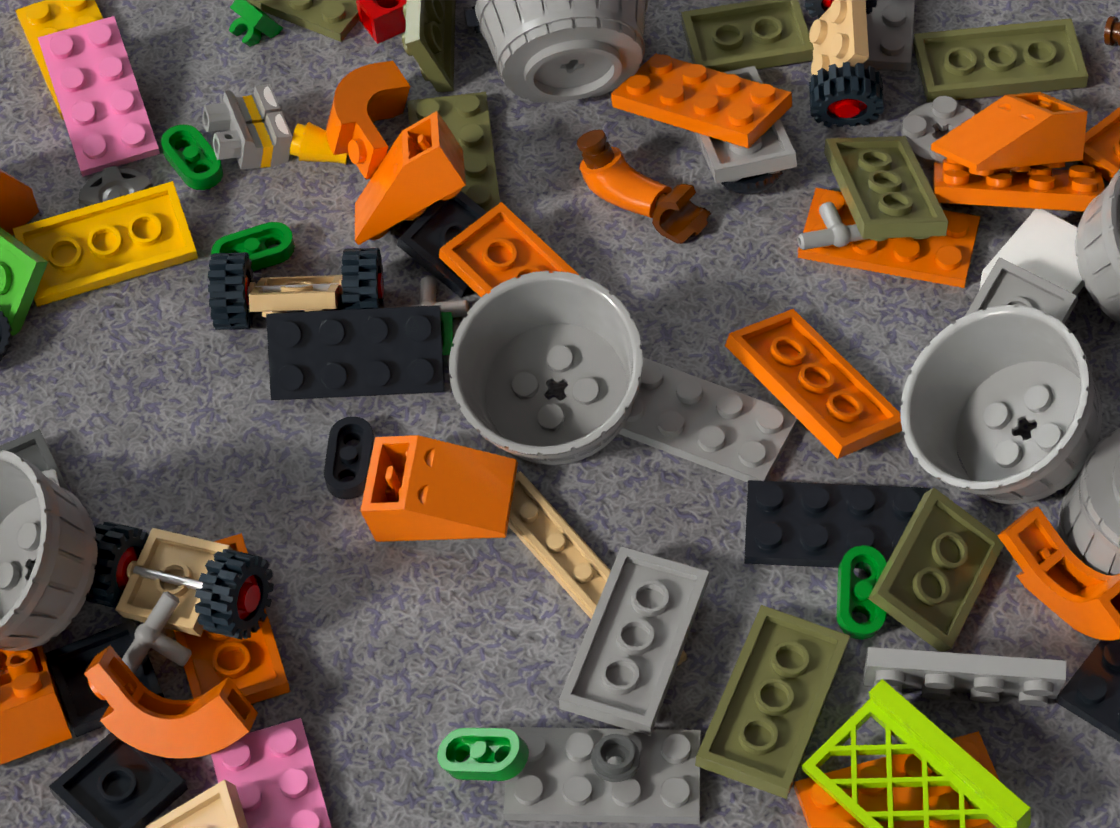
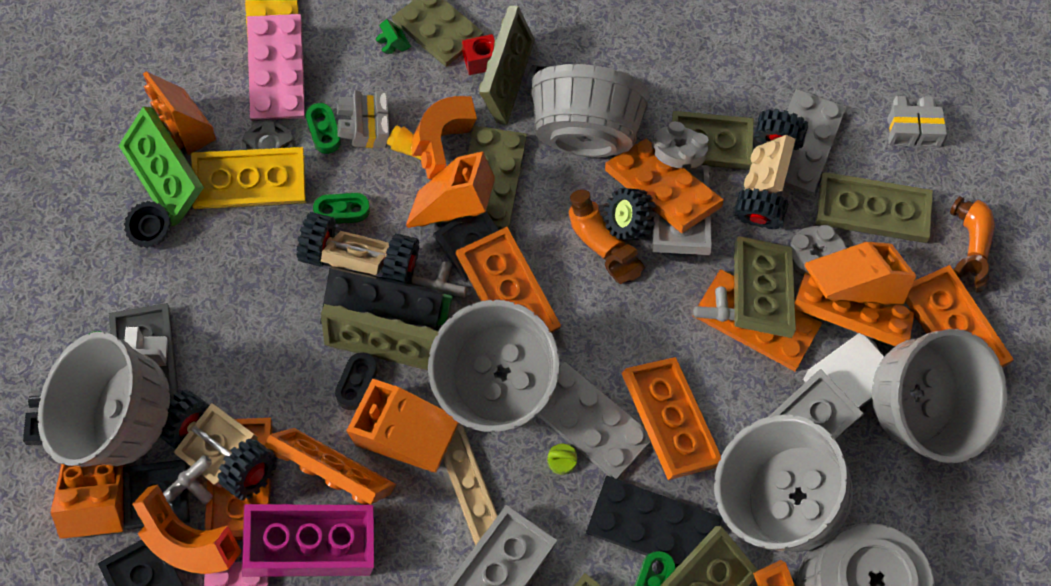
camera: 10 degrees right, 10 degrees up
(351, 665) = (307, 540): none -> dark pink brick
(365, 570) = (334, 467): none -> orange plate
(366, 384) = (377, 336): none -> olive plate
(667, 144) = (630, 214): none -> black wheel
(678, 478) = (562, 459): none -> lime tile
(706, 46) = (690, 150): none -> light grey plate

